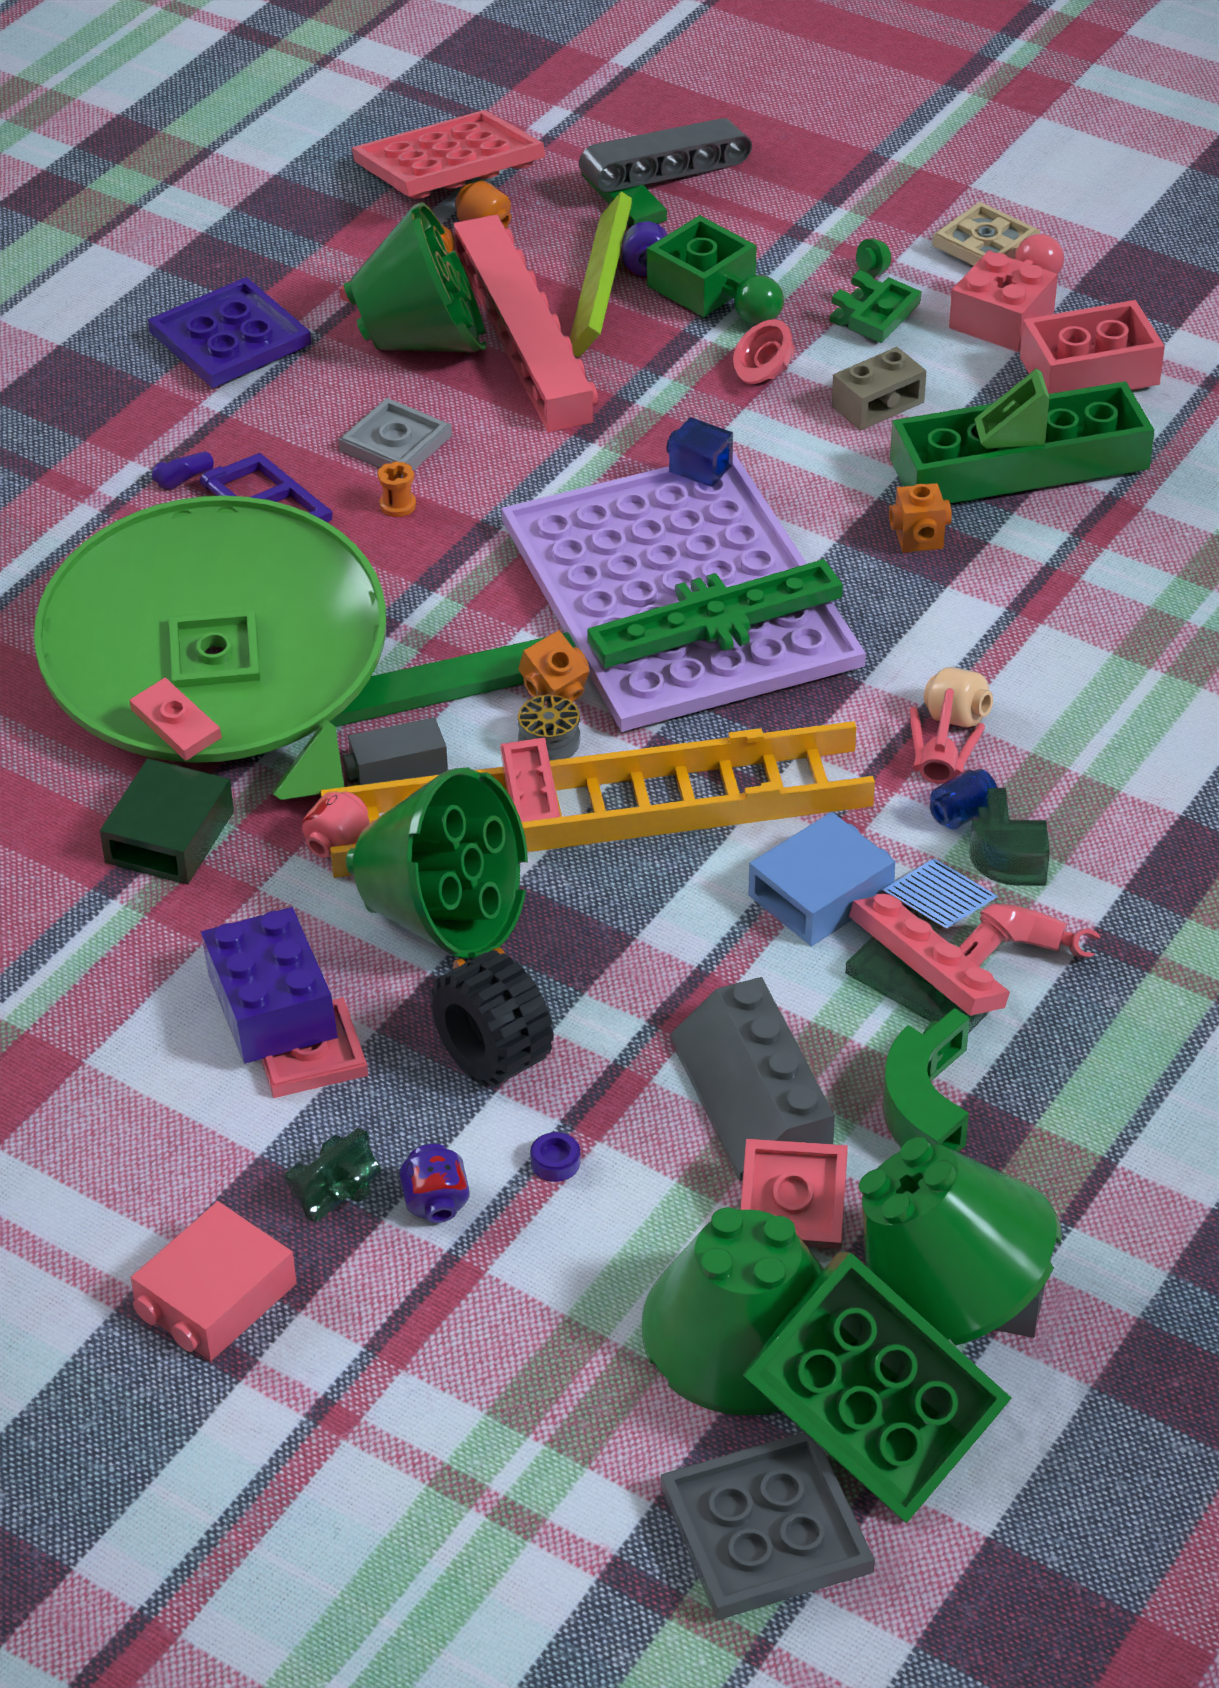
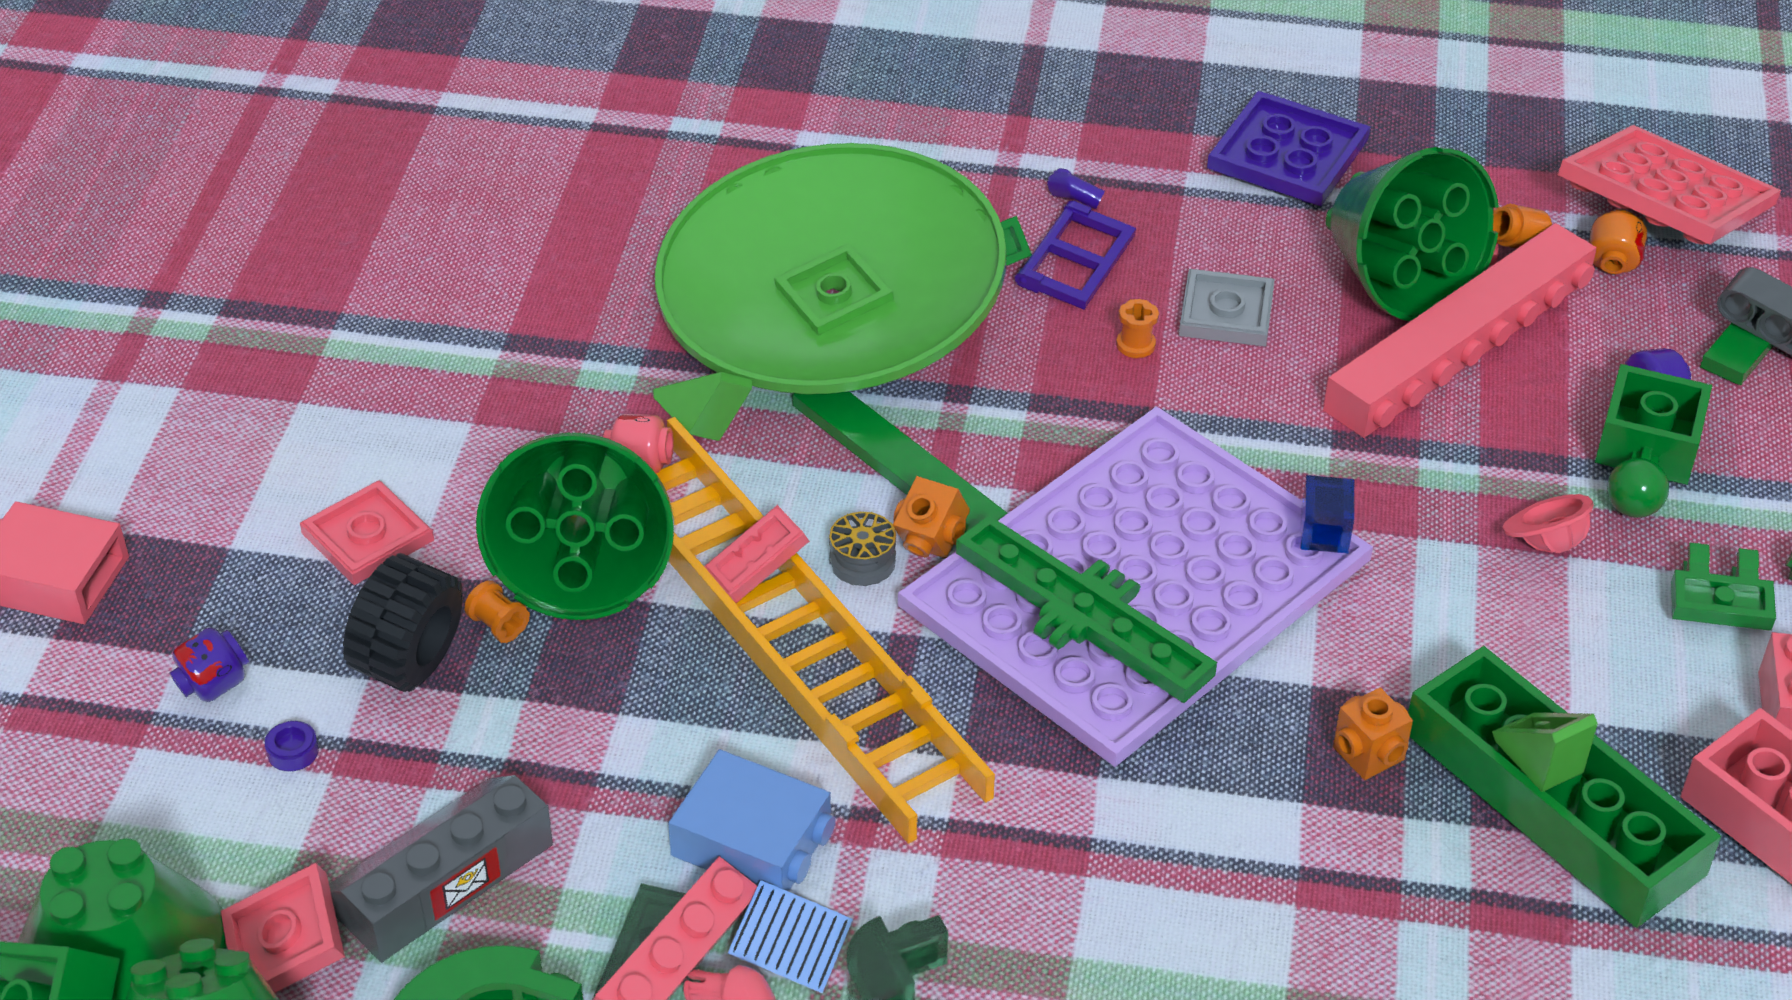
camera: 65 degrees right, 0 degrees up
(167, 821) = (596, 340): dark green brick -> none
(175, 719) = (691, 285): coral plate -> none
(269, 985) = (405, 469): dark purple brick -> none
(334, 1176) = (199, 597): clear green hips -> none
(396, 753) = (758, 456): dark grey brick -> none
(600, 274) = (1582, 358): lime tile -> none
(878, 388) = (1575, 634): dark tan brick -> none
(939, 757) = (997, 867): coral plant -> none
(959, 798) = (931, 897): clear blue brick -> none
(970, 700) = (1098, 851): light nougat head -> none

